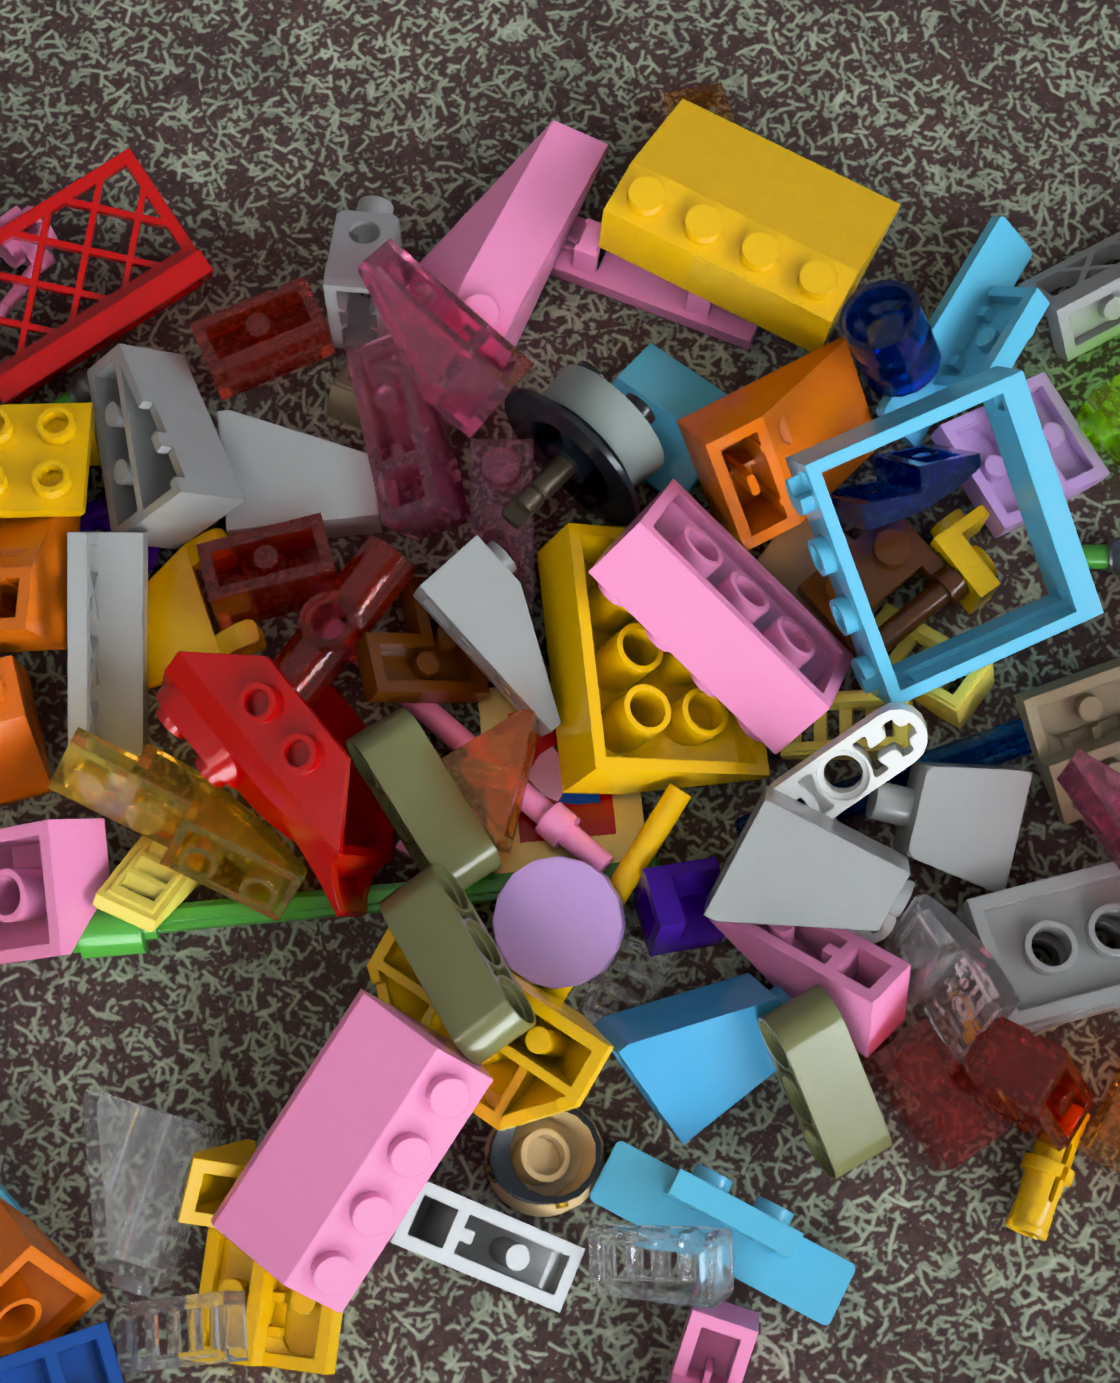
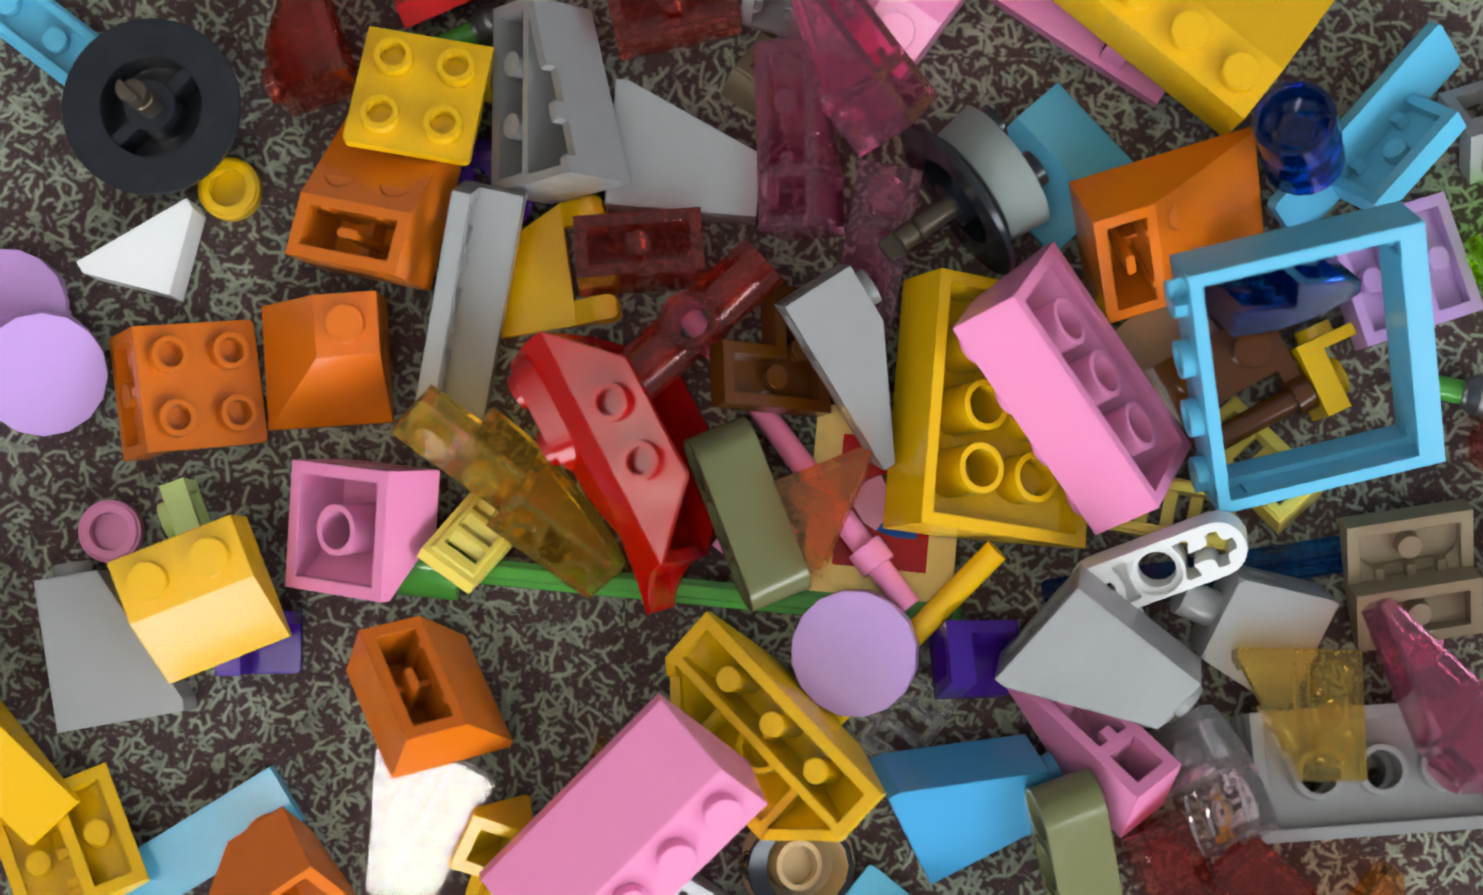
camera: 10 degrees right, 10 degrees up
(123, 1049) = (424, 696): none -> orange slope
(457, 963) = (753, 683): olive beam -> none
(1028, 879) = (1312, 707): none -> clear yellow wing

